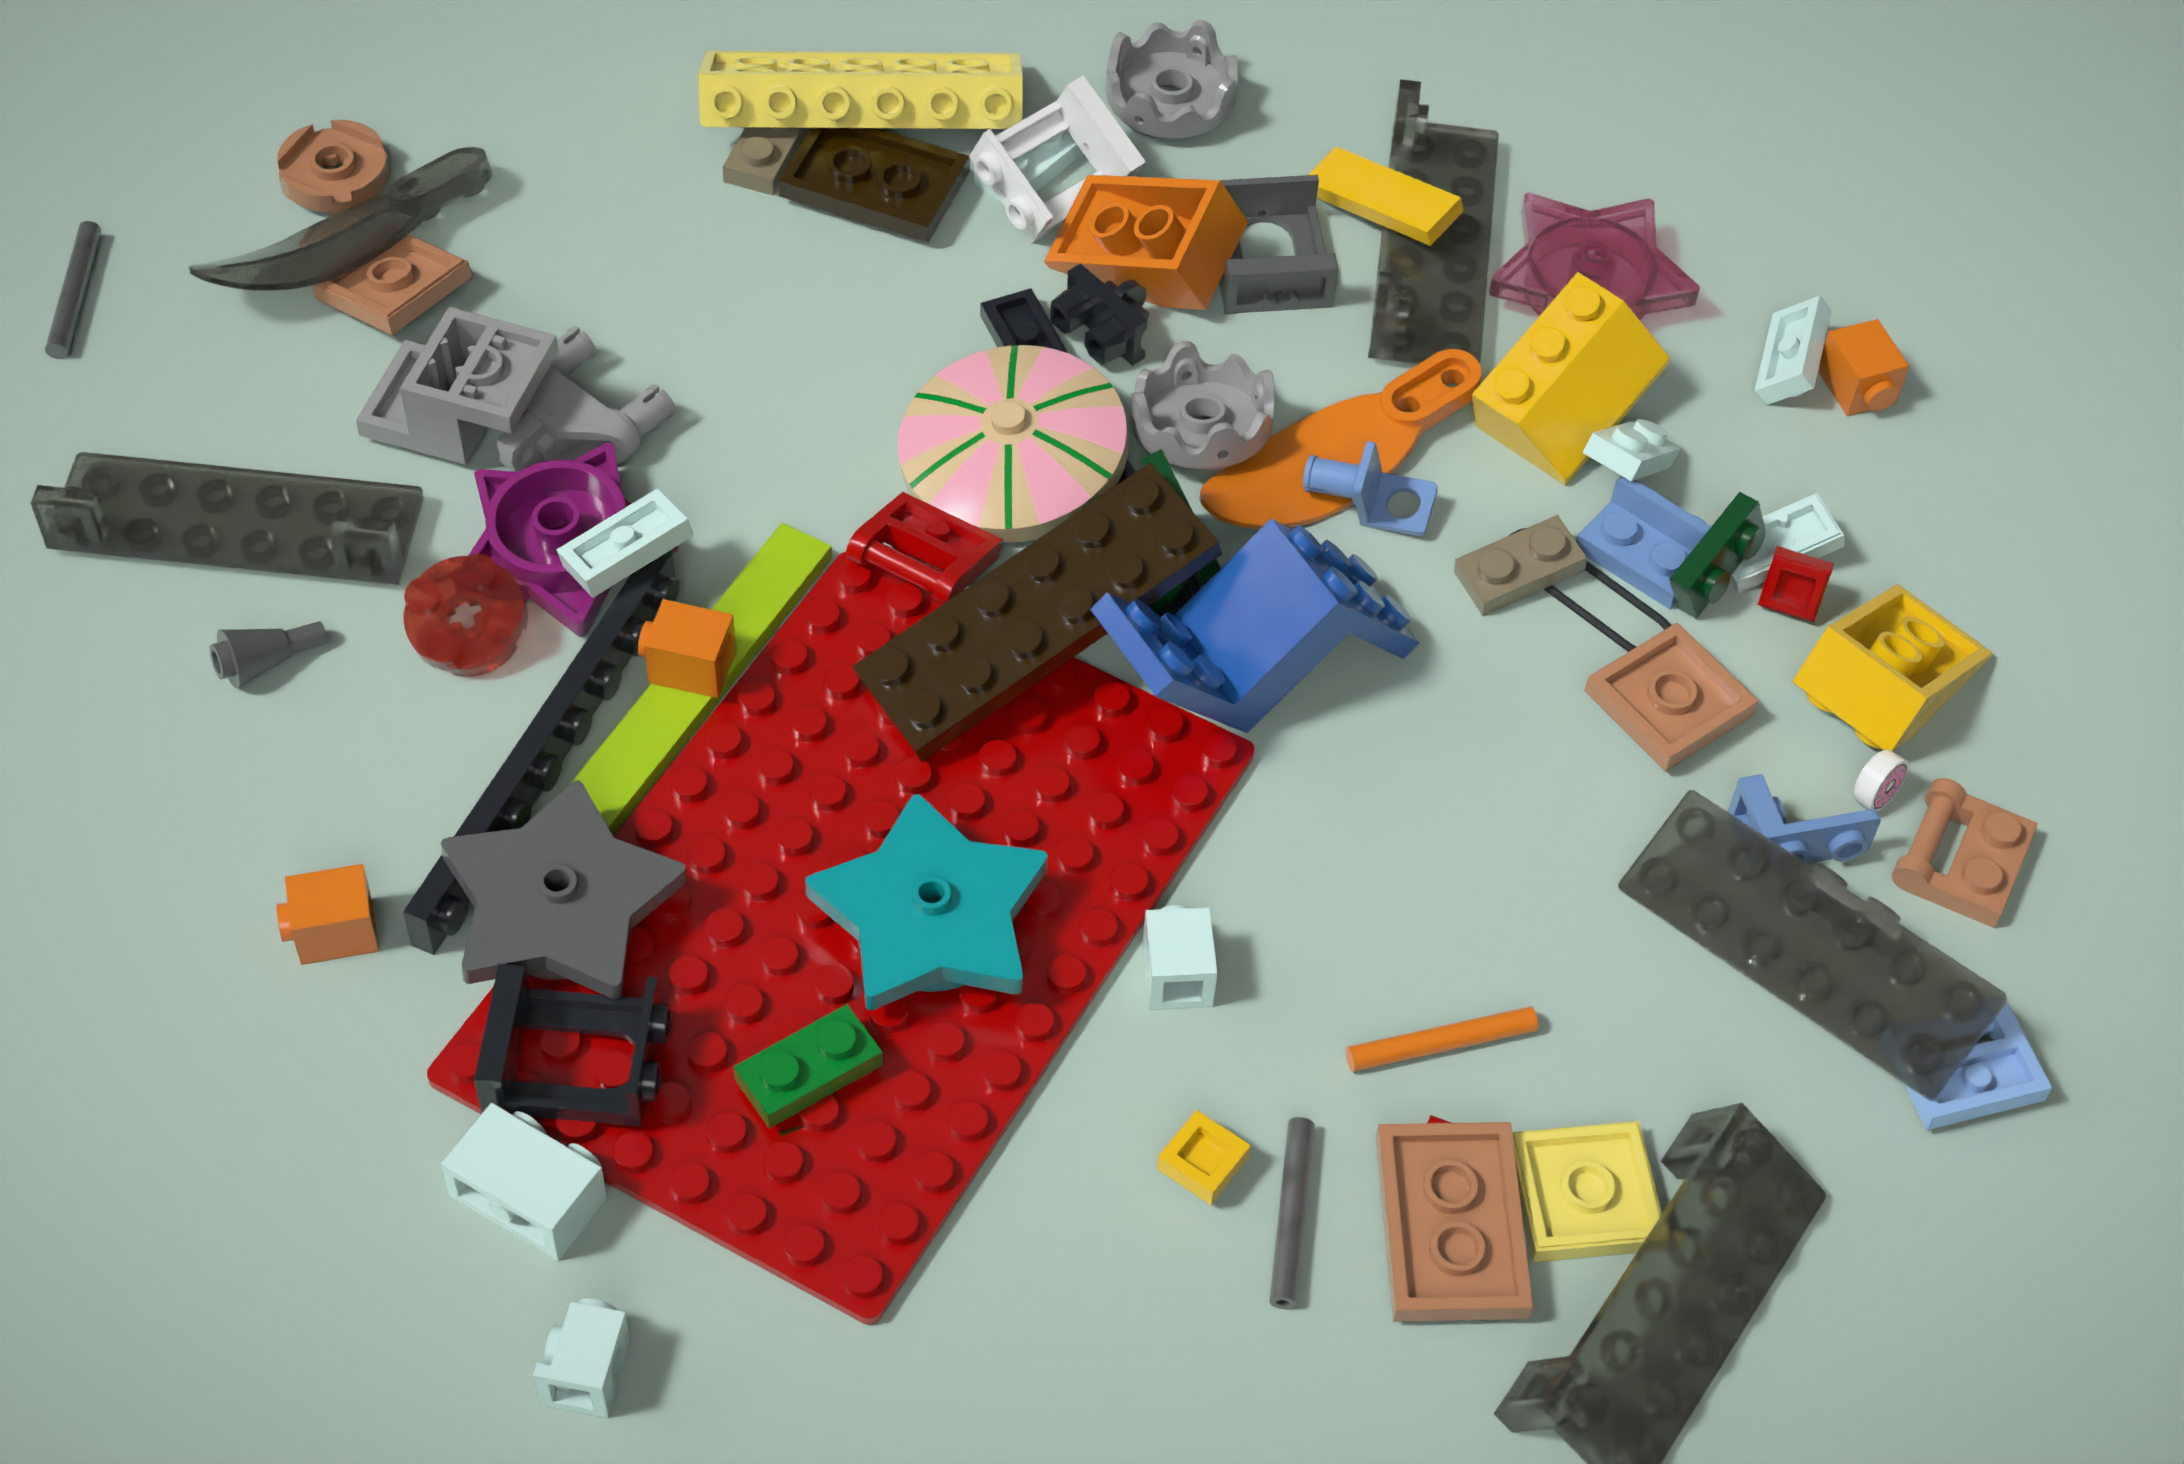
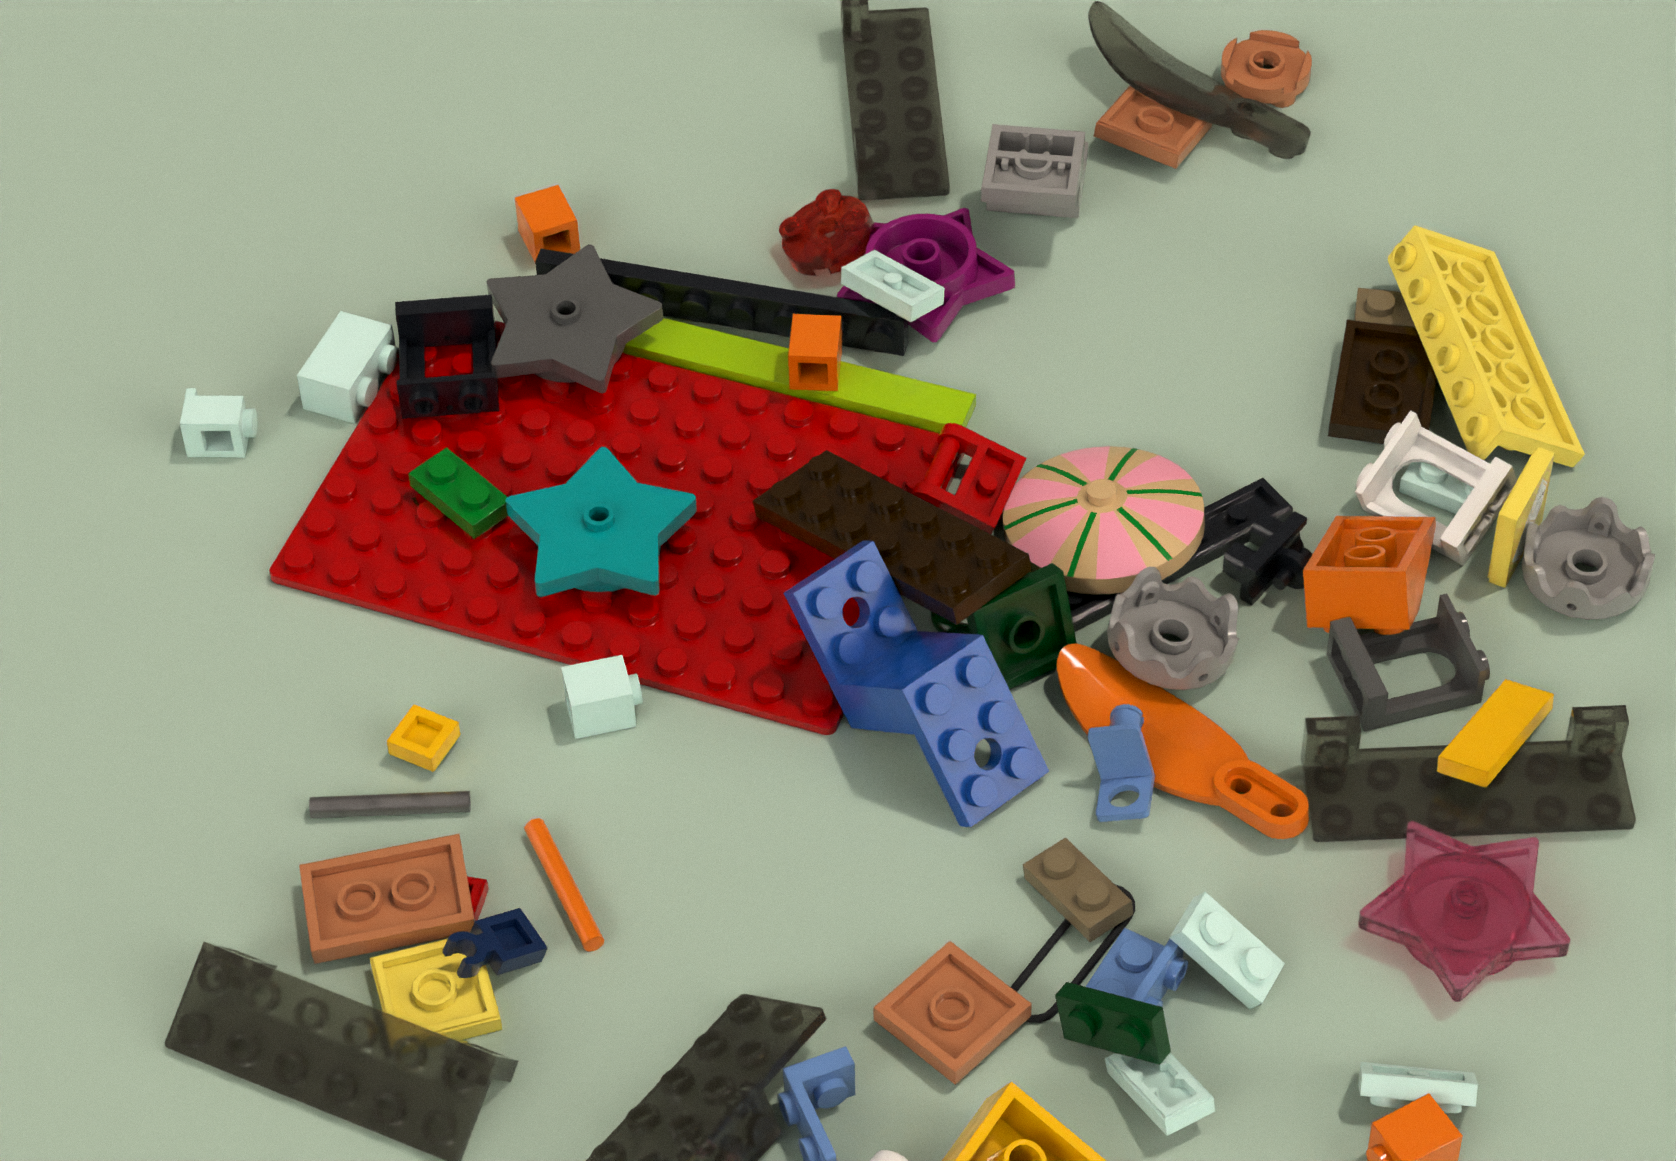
camera: 85 degrees right, 5 degrees down
(250, 652) = (766, 134): dark grey cone -> none
(569, 422) = (1046, 242): light grey connector -> none
(1132, 94) = (1521, 507): none -> light yellow tile
(1543, 1100) = (501, 940): none -> dark blue plate
(1569, 378) = (1298, 884): yellow slope -> none
(1795, 584) = (1107, 1097): red tile -> none

